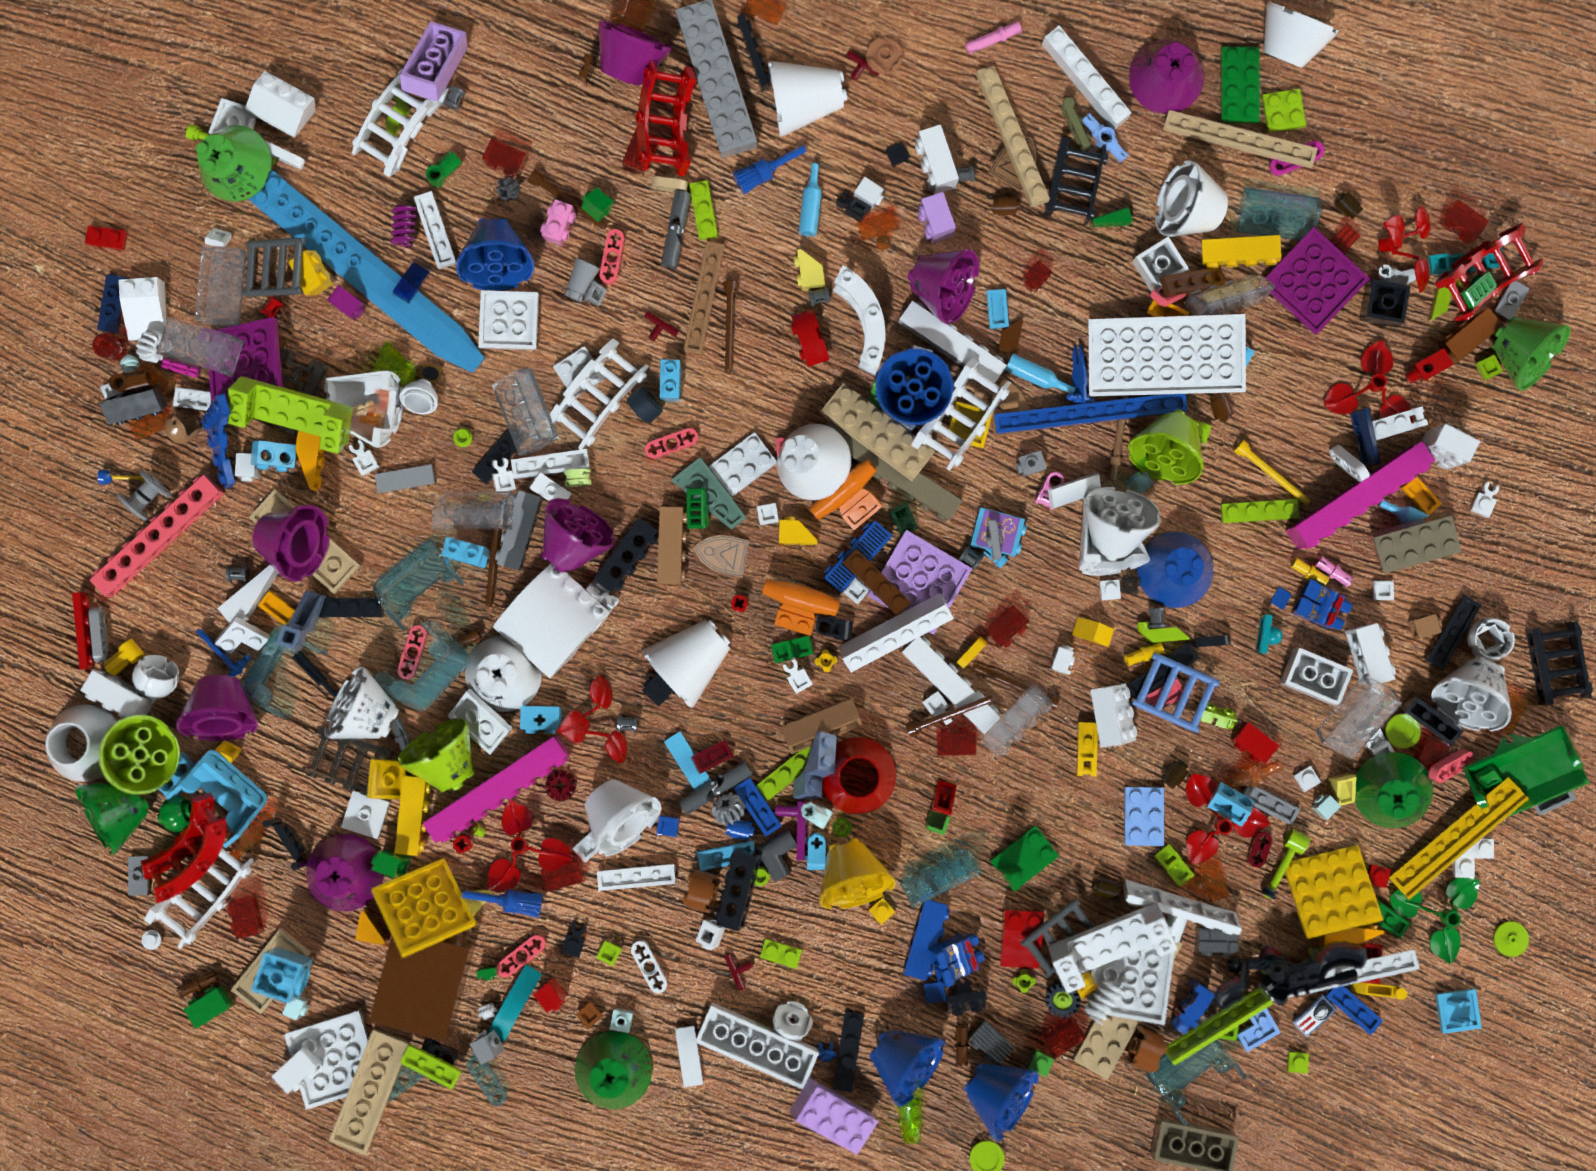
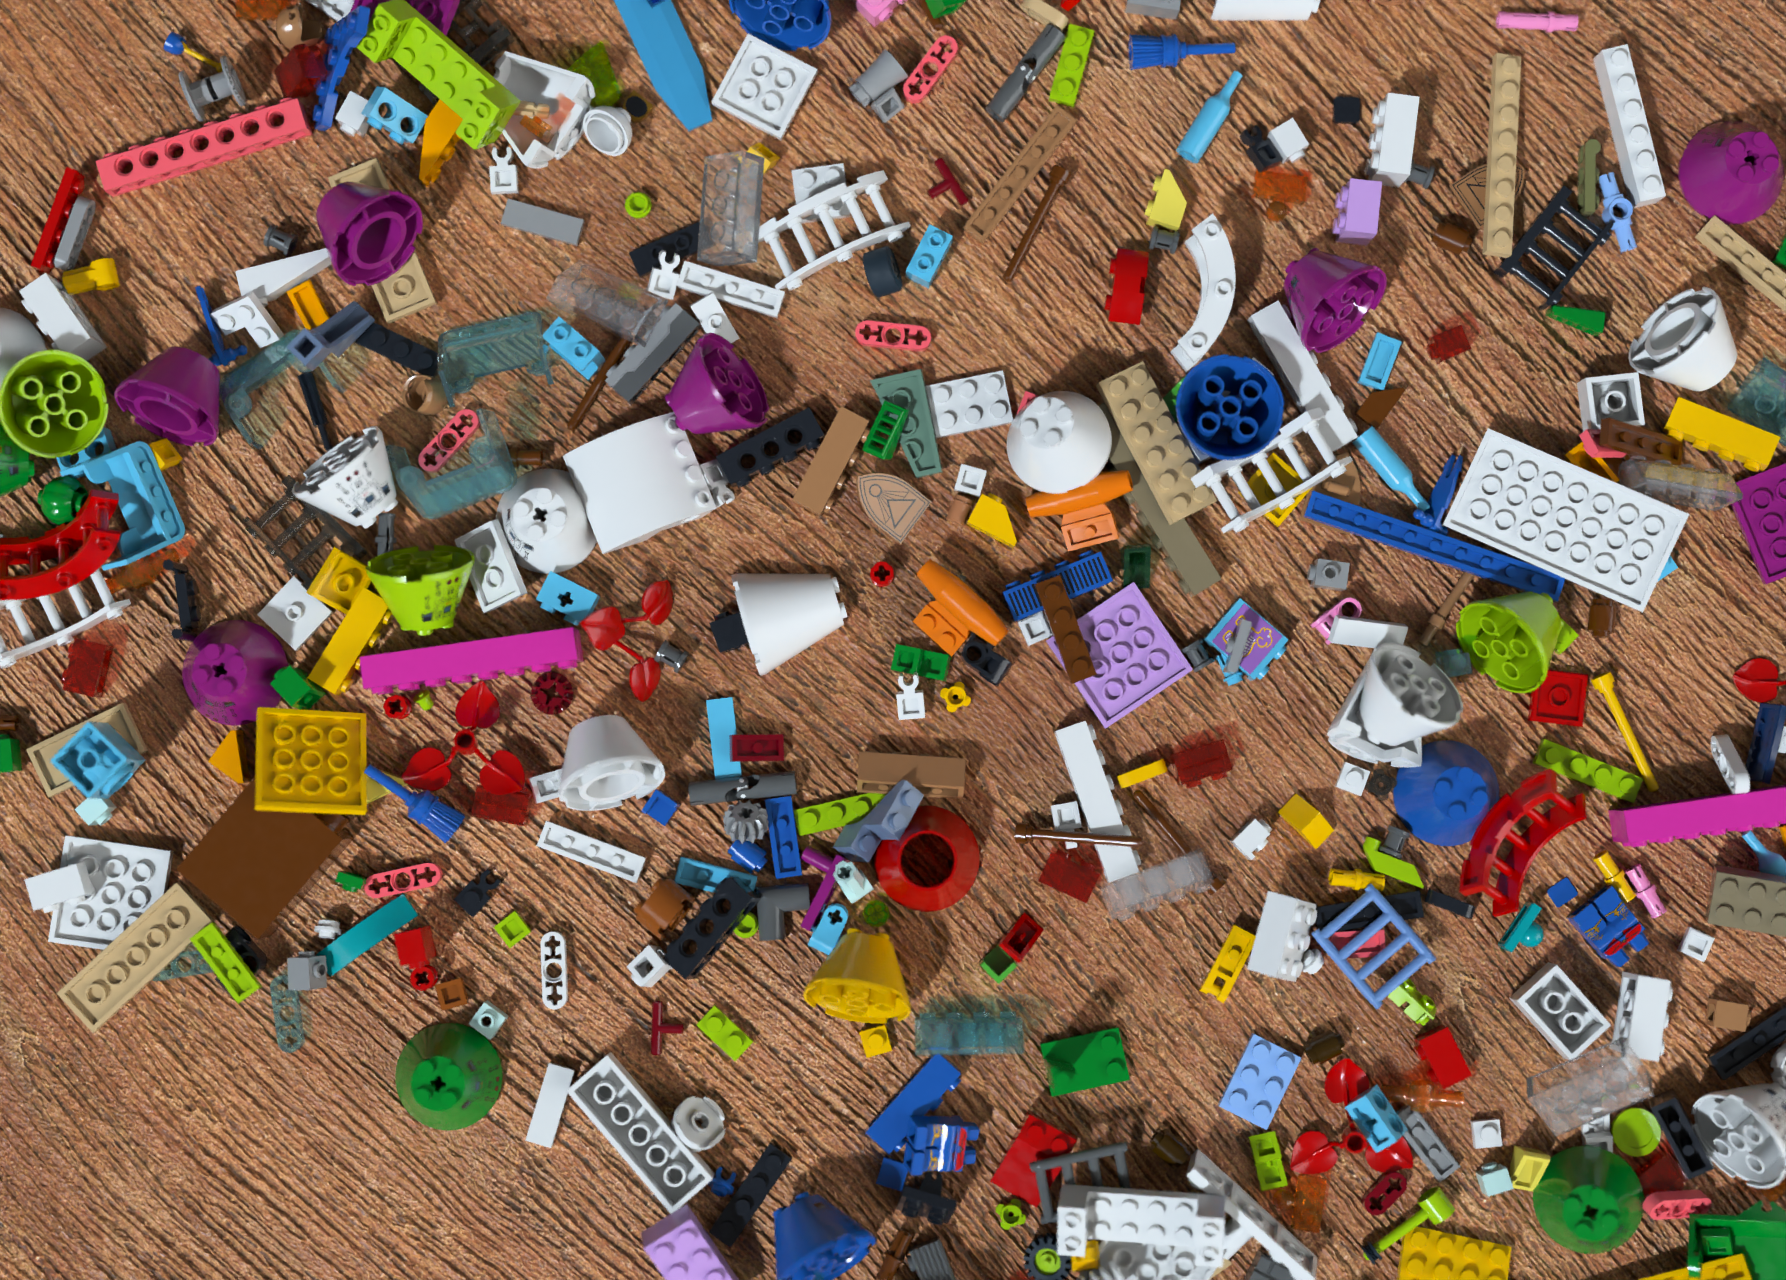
camera: 25 degrees right, 0 degrees up
(155, 677) = (118, 319): white piece -> none
(197, 456) = (300, 71): none -> clear red brick
(382, 629) = (425, 394): none -> medium nougat helmet
(527, 363) = (770, 158): none -> yellow tile
(561, 1016) = (432, 976): none -> red bush
(577, 478) = (756, 322): yellowish green wheel -> none
(770, 537) = (959, 510): none -> nougat piece
(895, 632) = (1059, 703): white brick -> none
(1140, 721) = (1312, 961): none -> white plate
(1218, 576) = (1498, 825): none -> red fence
(1219, 473) = (1559, 699): none -> red tile

